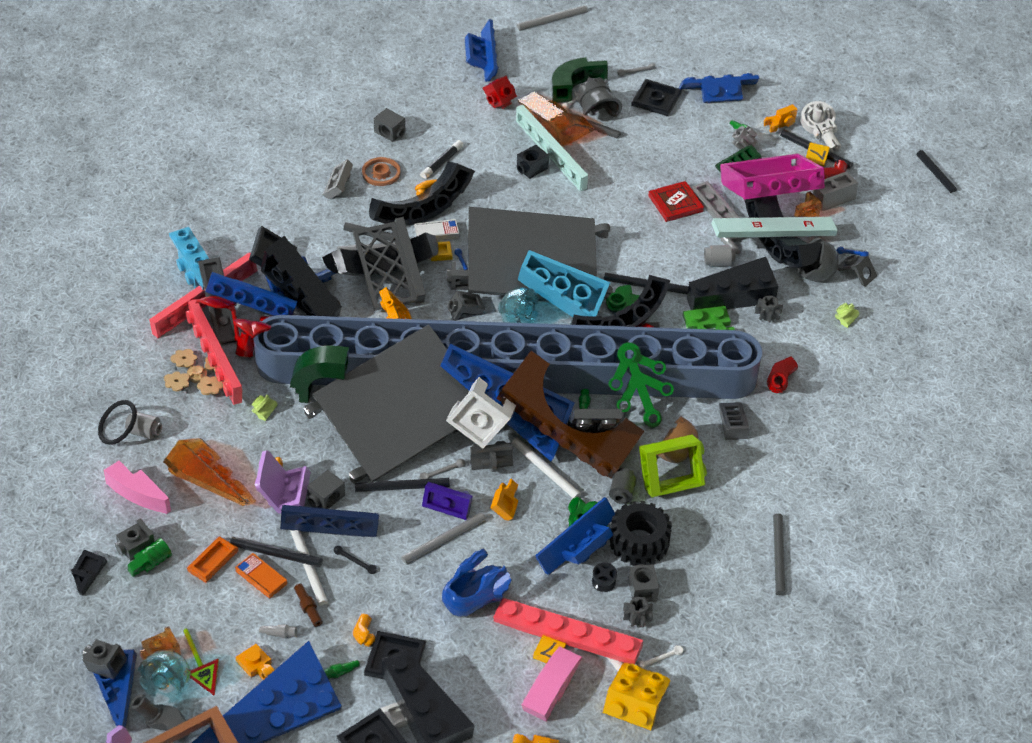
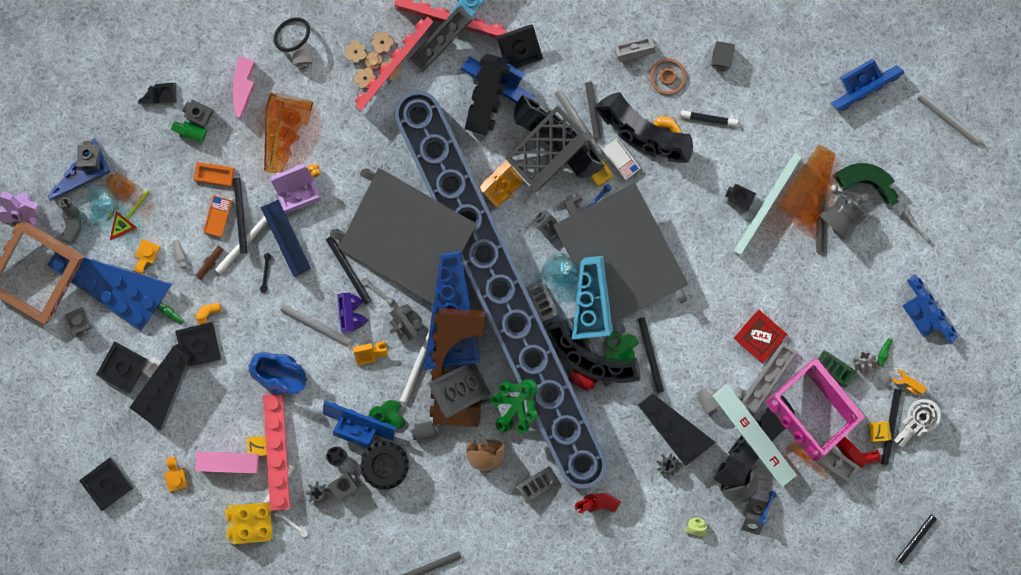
camera: 65 degrees right, 40 degrees up
(250, 295) = (454, 64): blue bracket -> none
(250, 329) = (408, 86): red plant -> none
(263, 406) = (366, 128): yellowish green plate -> none
(316, 364) = (401, 161): dark green arch -> none
(325, 490) = (308, 221): dark grey brick -> none
(480, 415) = (411, 305): white panel -> none
(500, 92) = (811, 127): red brick -> none
(584, 399) = (496, 364): green piece -> none
(650, 469) = (455, 463): lime window -> none
(656, 97) = (887, 261): black tile -> none
(708, 318) = (634, 418): bright green plate -> none

